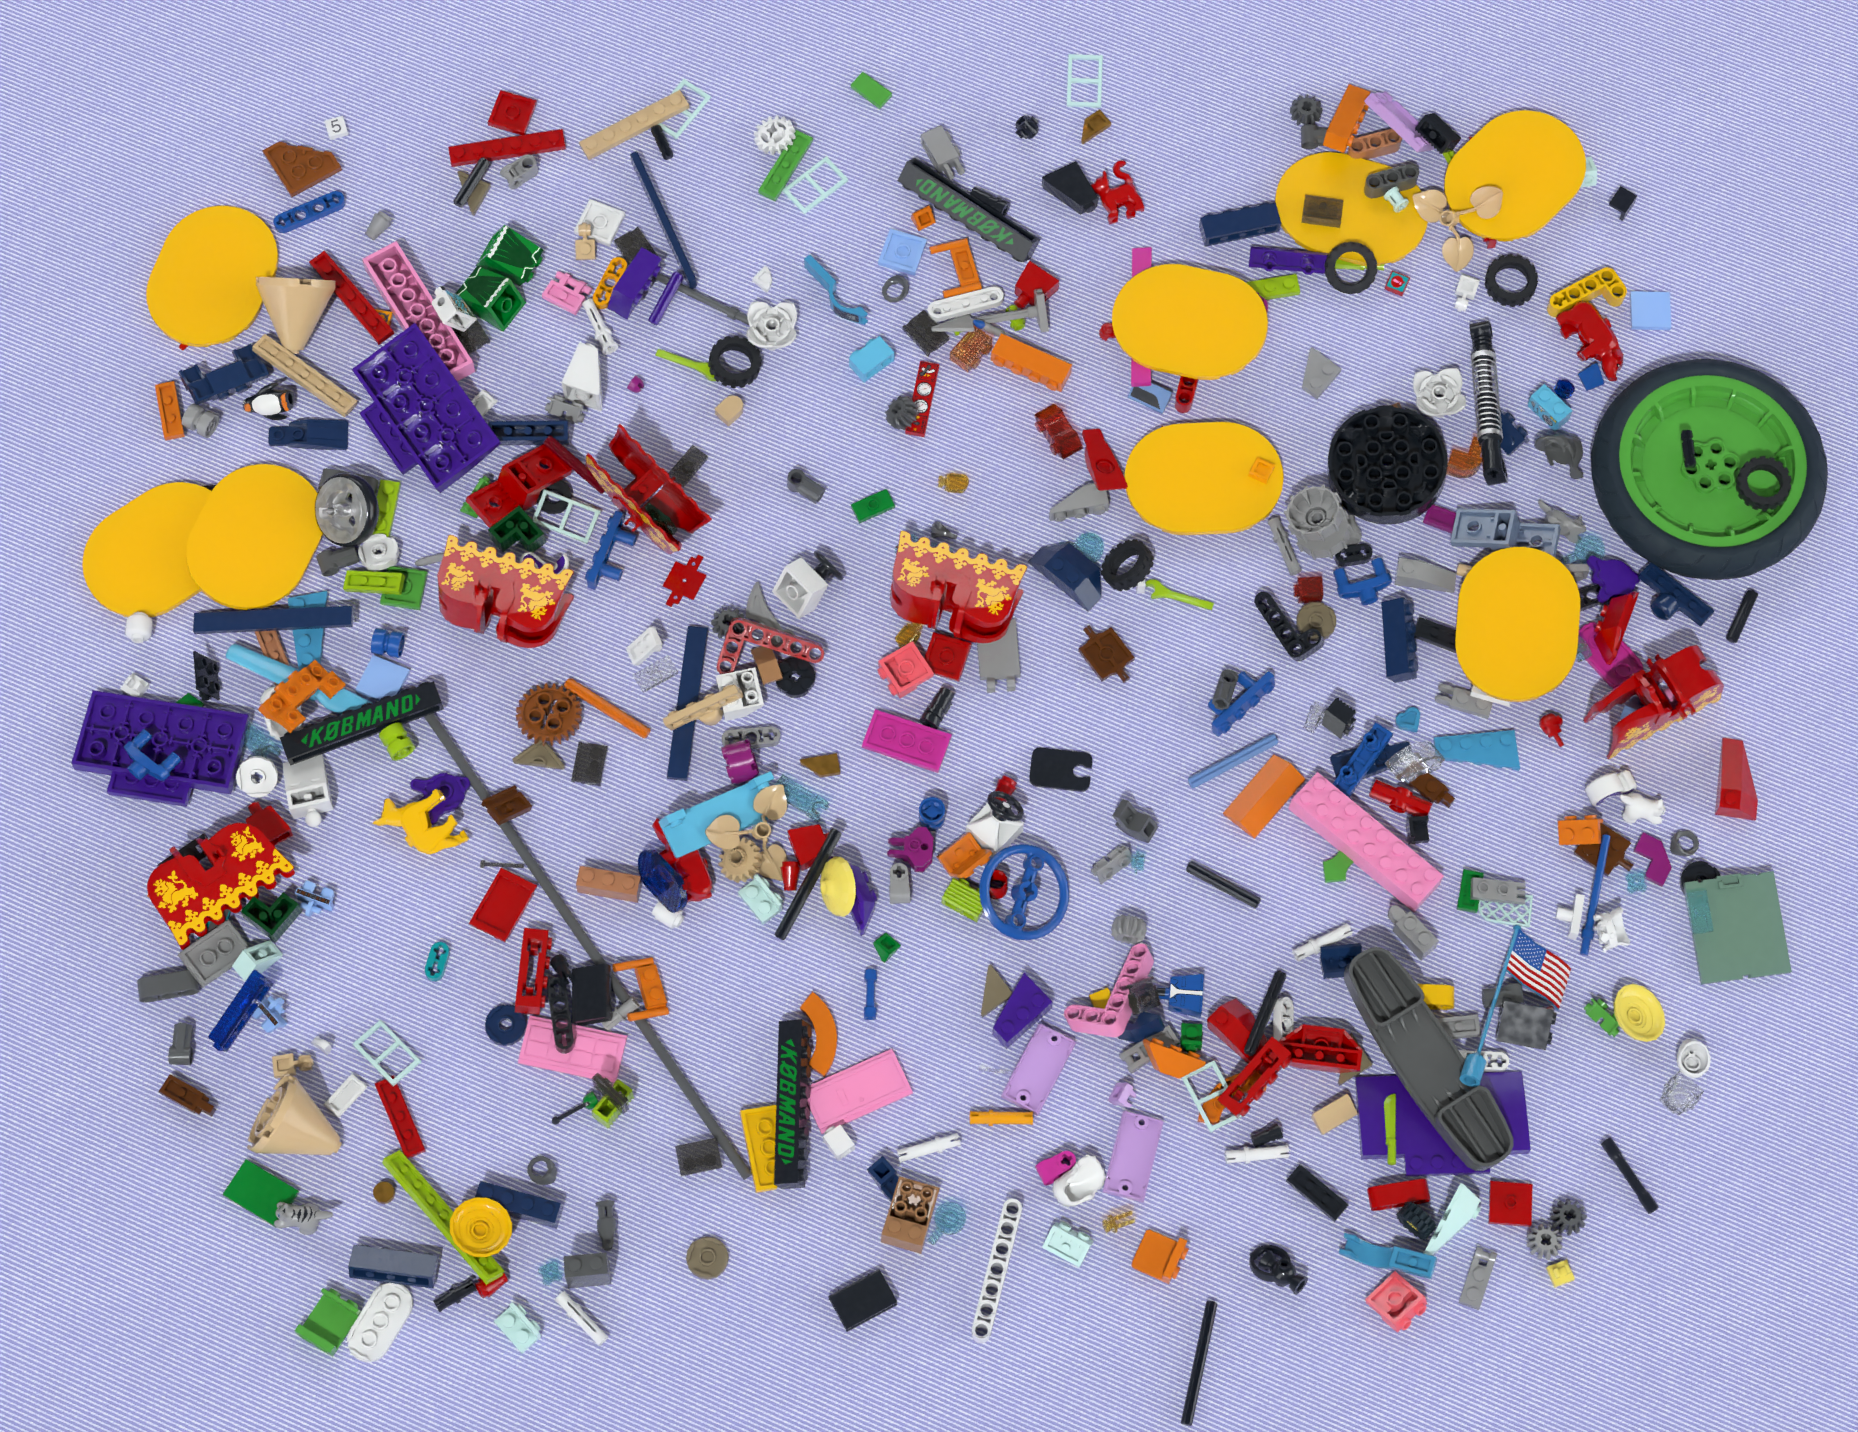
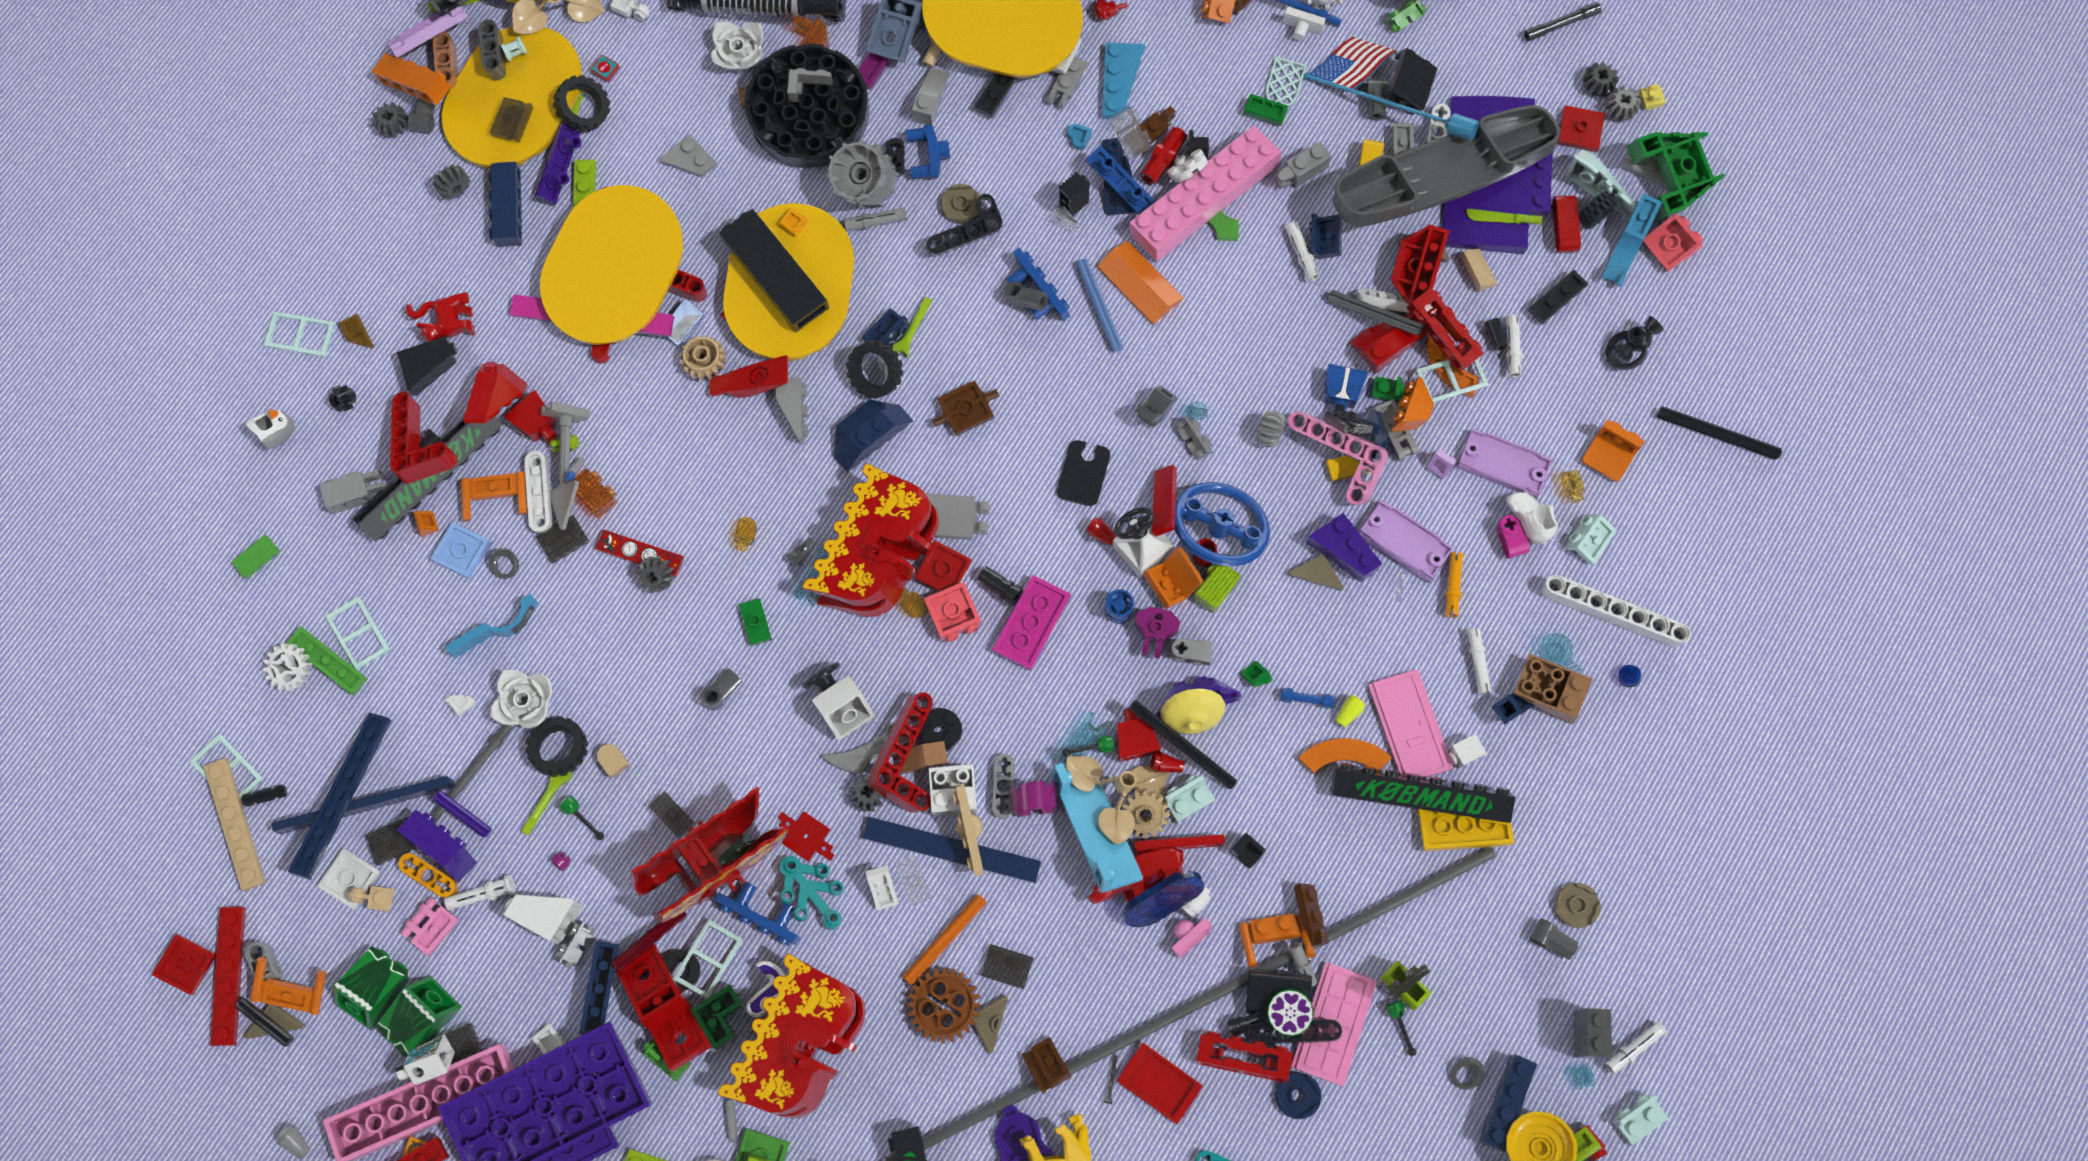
camera: 80 degrees left, 5 degrees up
(496, 193) = (287, 994): none -> orange plate
(575, 1002) = (1290, 1012): none -> tile
(606, 1224) = (1534, 1008): dark grey piece -> none
(609, 884) = (1153, 960): nougat brick -> none
(635, 913) = (1189, 935): none -> bright pink tile
(636, 587) = (808, 889): none -> teal plant
(667, 198) = (339, 796): none -> dark blue tile
(668, 1014) = (1310, 913): none -> reddish brown hinge
(674, 1231) = (1548, 936): none -> dark grey piece
(684, 383) = (571, 806): none -> hinge
(698, 1157) = (1469, 900): clear smoke plate -> none
(719, 955) = (1247, 850): none -> black panel
(722, 917) = (1181, 843): none -> red tile
(799, 817) = (1104, 745): none -> hinge
(822, 765) = (1045, 713): pearl gold tile -> none
(863, 1300) = (1635, 749): black piece -> none
(865, 1034) = (1350, 710): none -> neon yellow cone
(871, 358) = (583, 599): medium azure brick -> none
(934, 1290) = (1629, 676): none -> clear blue tile
(972, 187) = (406, 457): none -> red beam
(989, 77) = (272, 428): none -> piece
(1031, 363) = (621, 434): orange brick -> none
(1038, 837) = (1164, 500): none -> red tile
(1049, 245) = (492, 389): none -> red wedge
(1057, 431) = (707, 418): clear red brick -> none
(1089, 545) = (840, 407): clear light blue piece -> none
(1117, 427) = (698, 348): none -> tan gear
(1171, 573) = (888, 328): none -> dark blue bracket
(1208, 460) = (774, 270): none -> black brick
(1223, 884) = (1229, 335): black axle -> none
(1251, 173) = (451, 181): none -> dark grey gear
(1308, 589) = (927, 202): clear red brick -> none
(1391, 820) = (1186, 165): none -> white plate
(1399, 640) = (997, 127): dark blue brick -> none
(1400, 444) = (800, 76): none -> light grey bracket
(1476, 1300) = (1681, 164): none -> green wedge
(1497, 891) = (1270, 85): light grey hinge -> none

